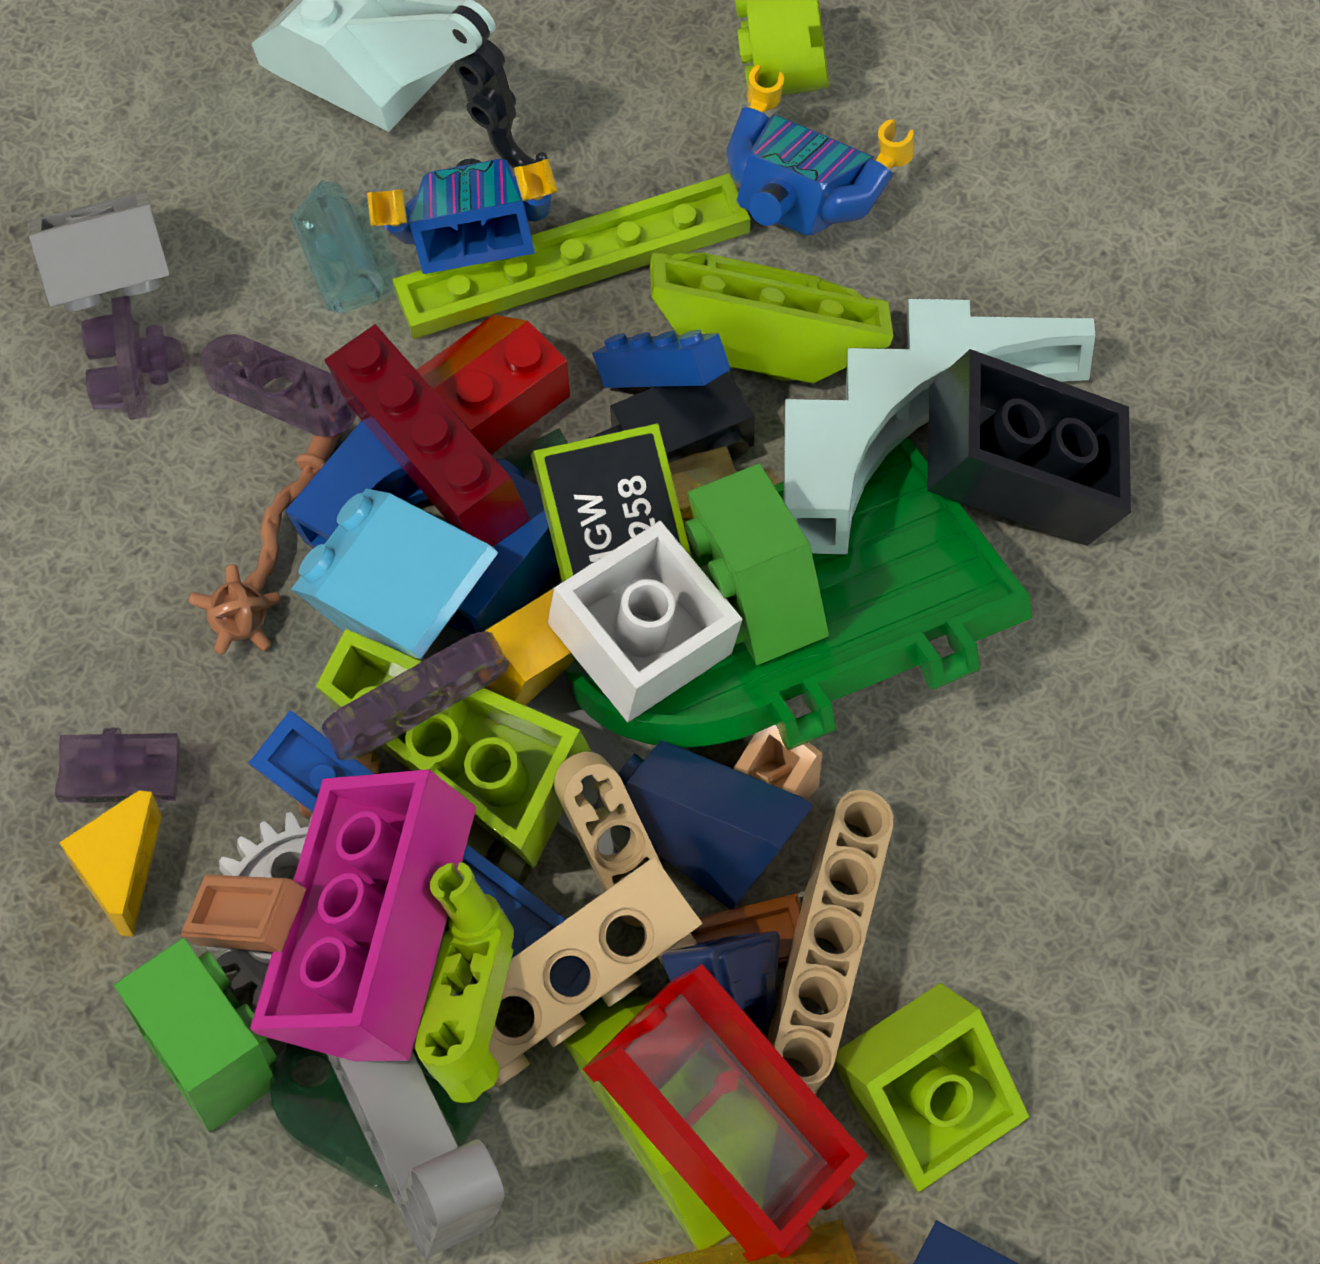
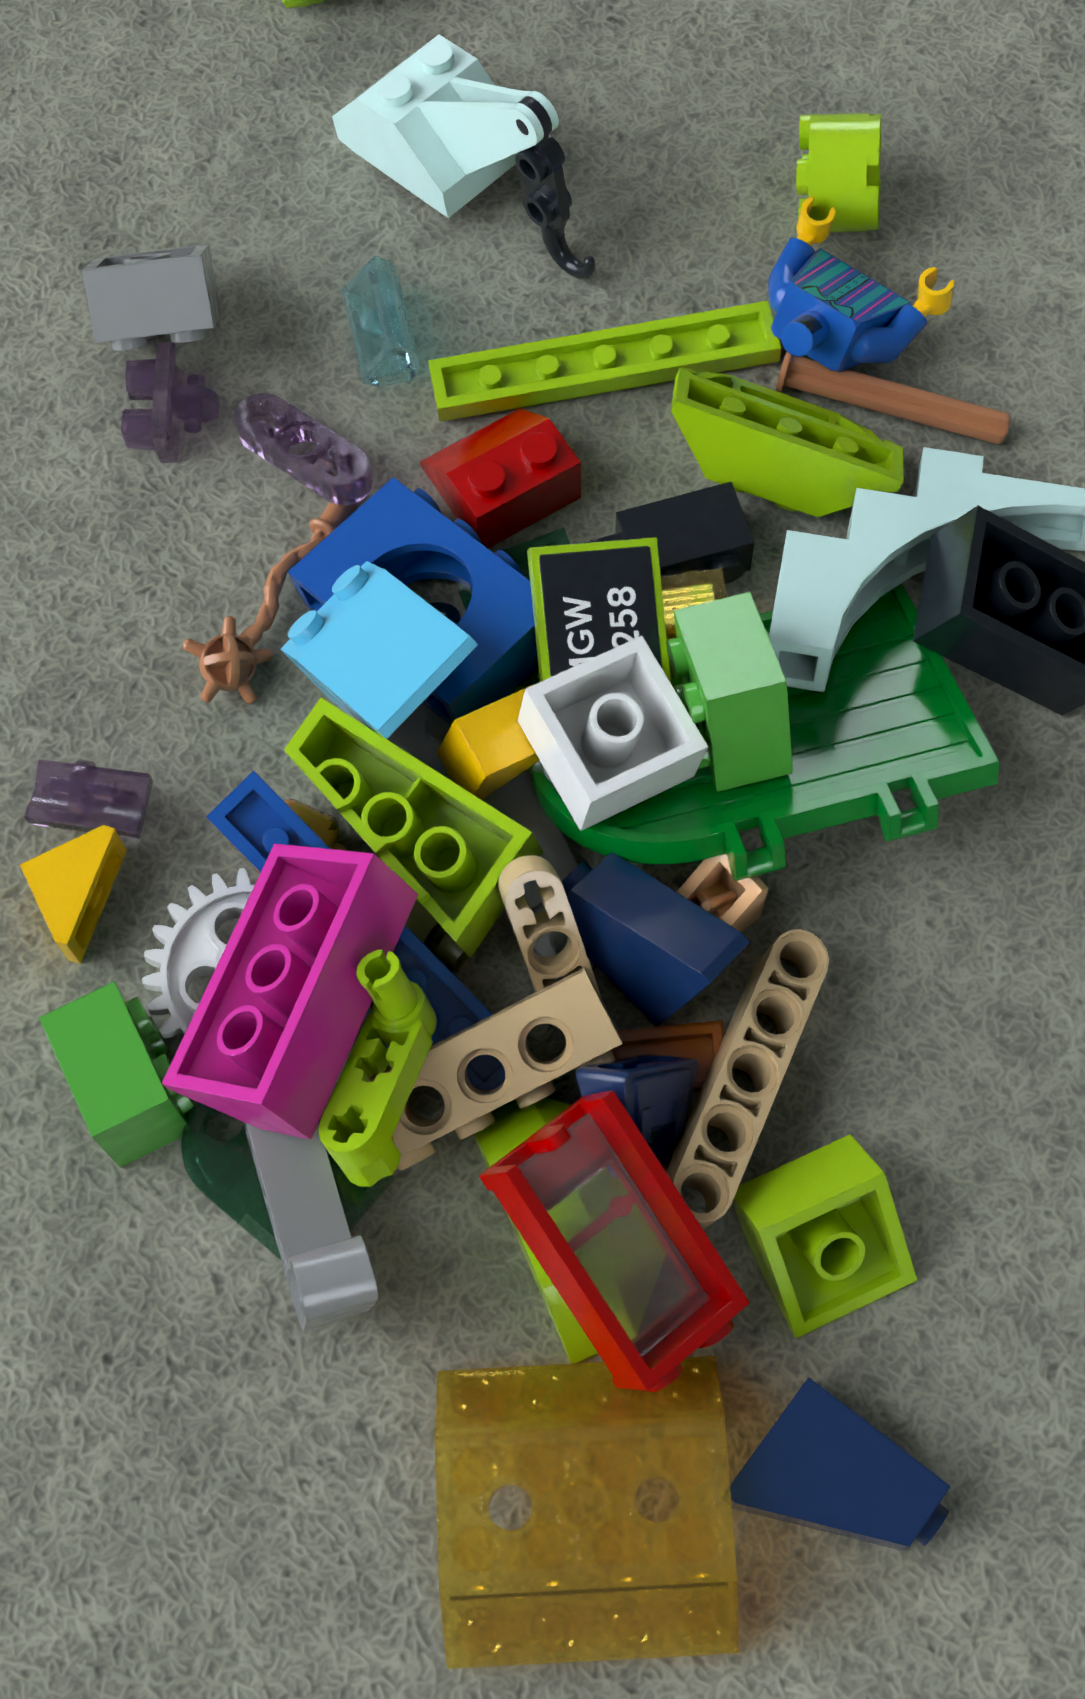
camera: 10 degrees right, 5 degrees up
(243, 912) = (177, 964): nougat tile -> none
(415, 695) = (375, 775): clear purple beam -> none
(427, 438) = (431, 521): dark red brick -> none
(468, 212) = (508, 305): blue torso -> none
(661, 359) = (672, 474): blue piece -> none
(871, 255) = (894, 399): none -> nougat axle

